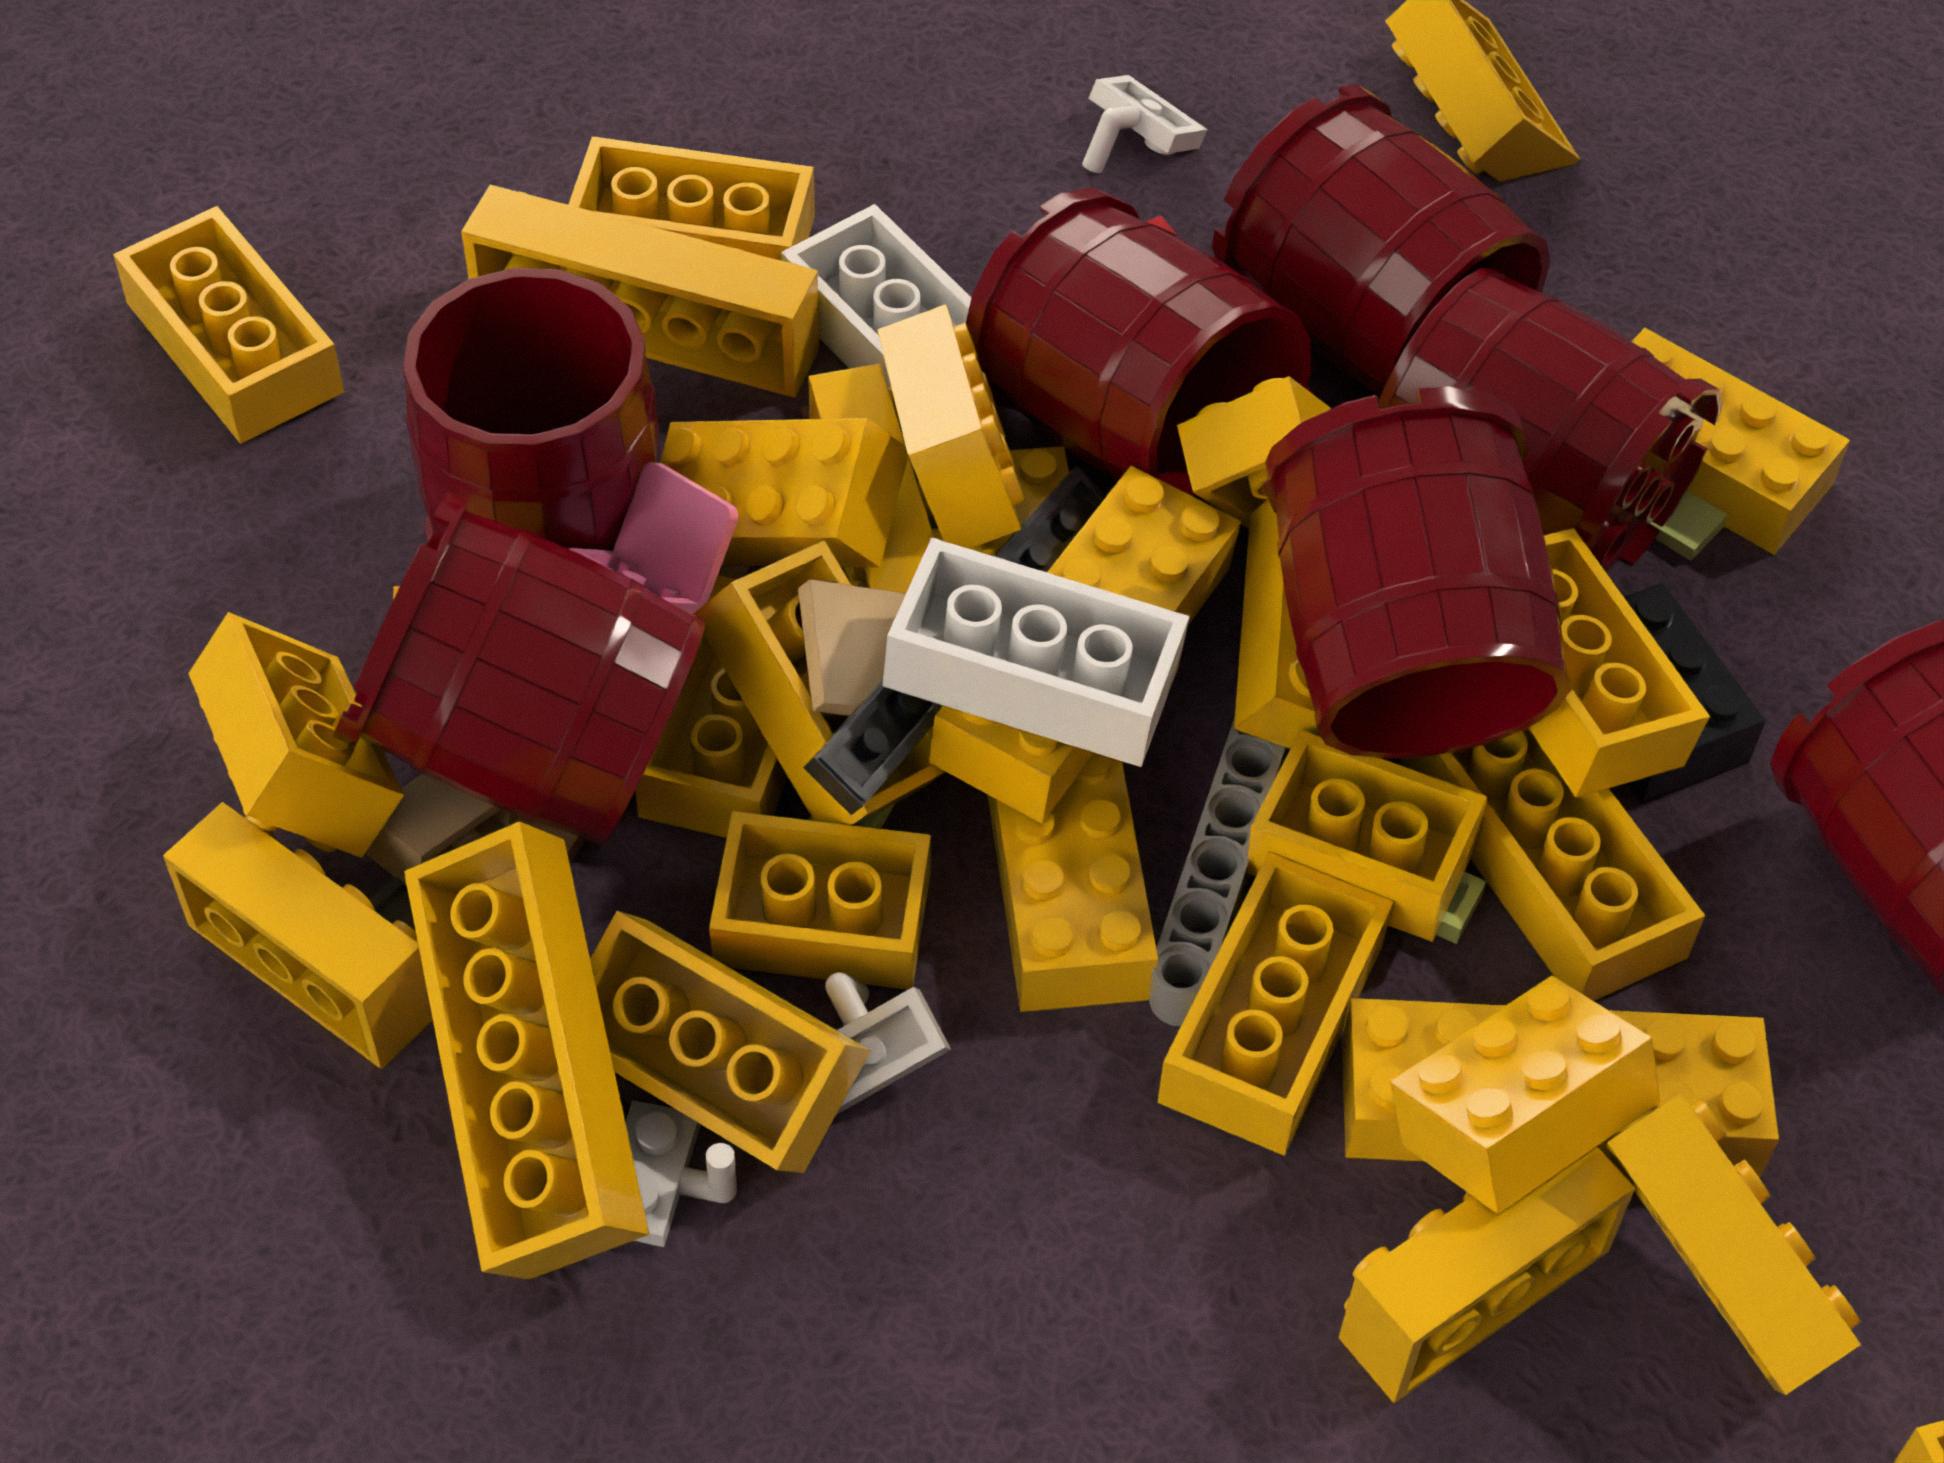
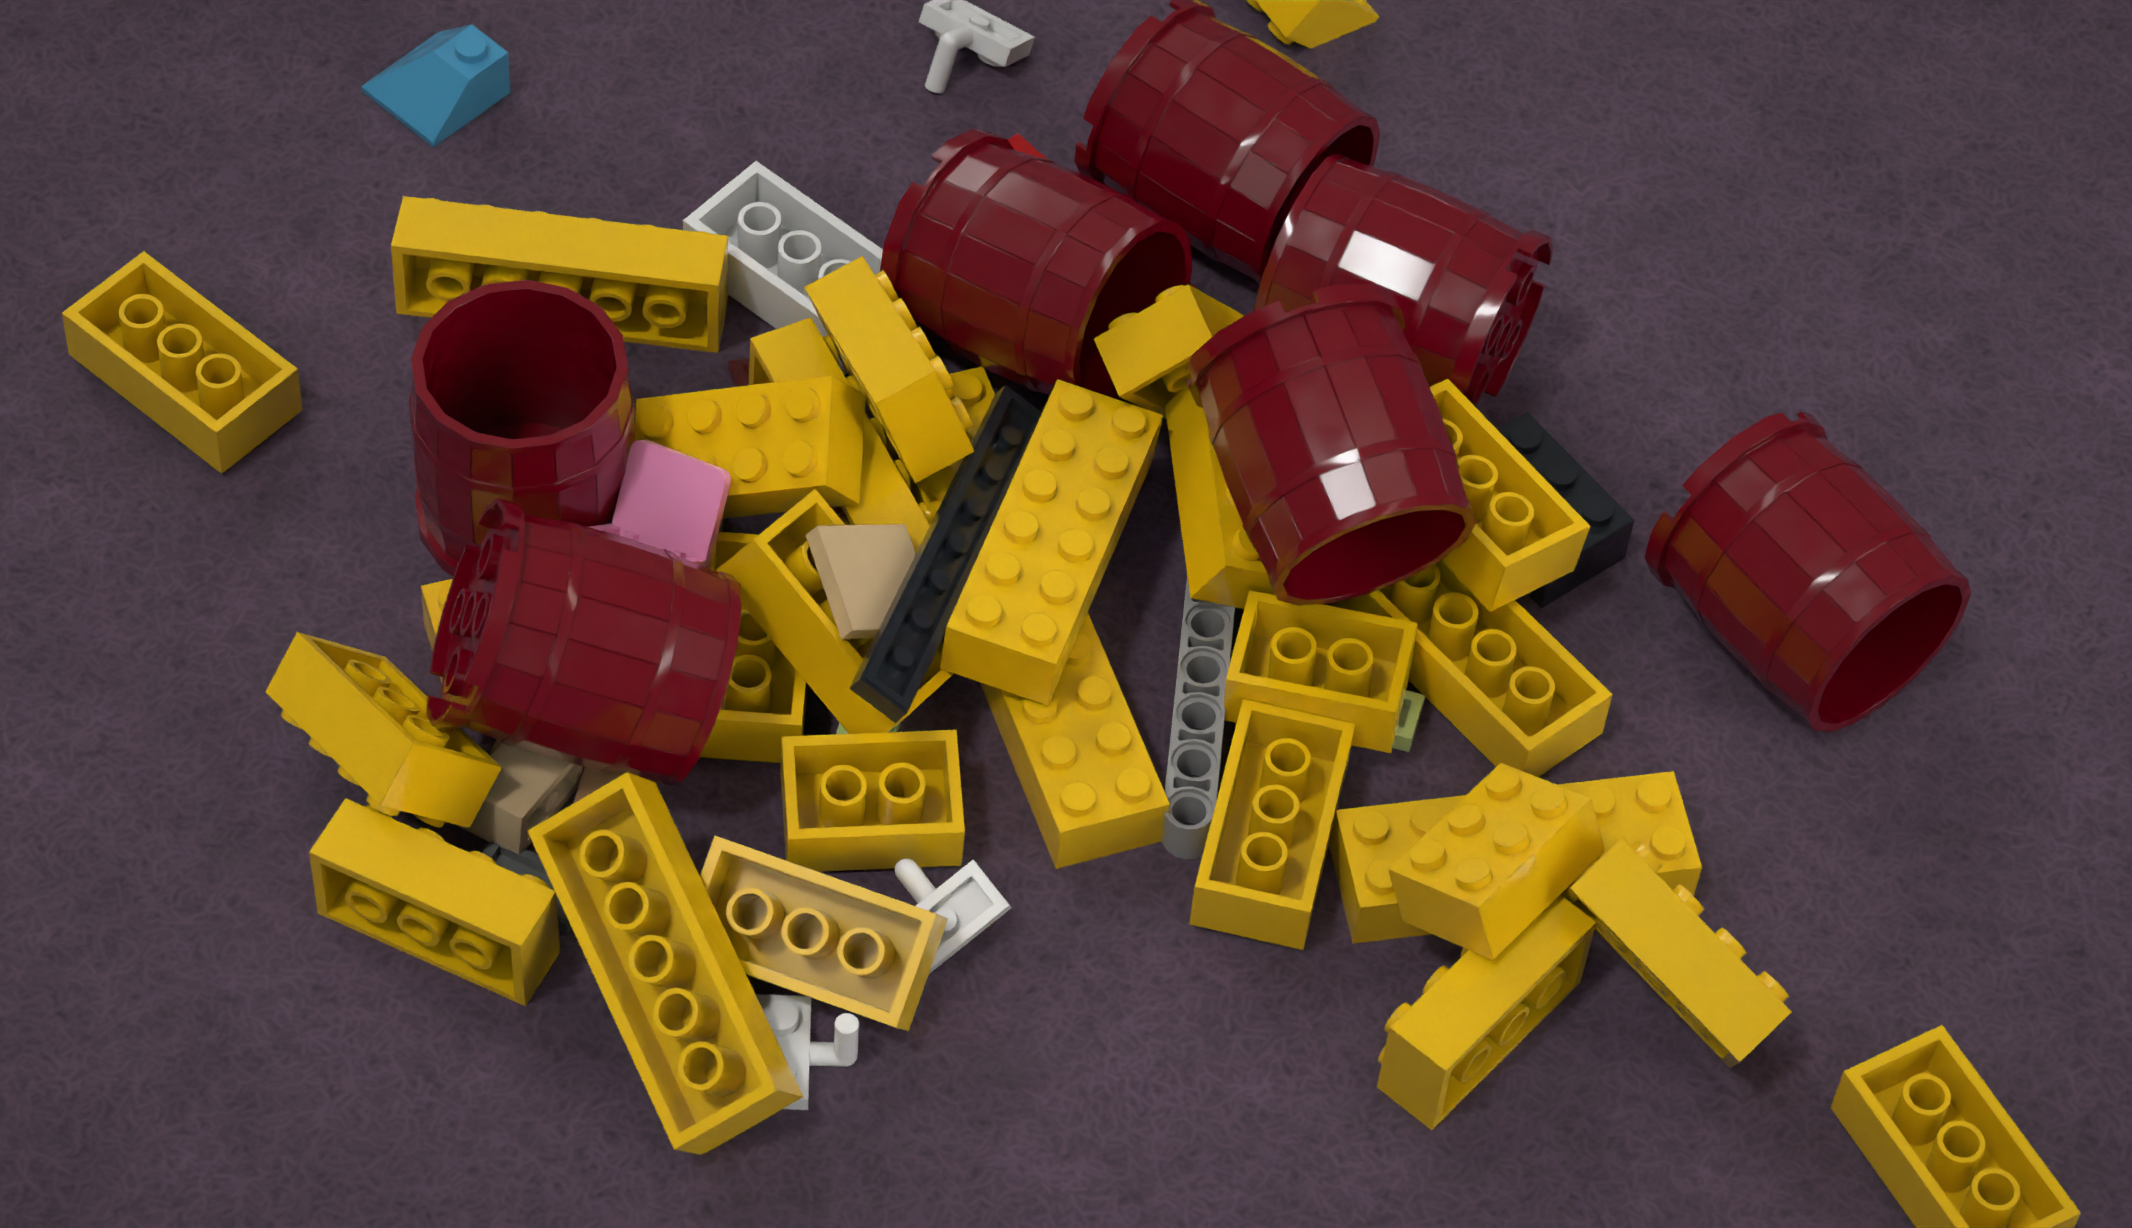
camera: 15 degrees left, 0 degrees up
(588, 95) = (443, 82): none -> dark azure slope
(699, 194) = (587, 174): yellow brick -> none
(1034, 651) = (1026, 559): white brick -> none
(1691, 526) = (1540, 354): yellowish green tile -> none
(1762, 457) = (1593, 285): yellow brick -> none

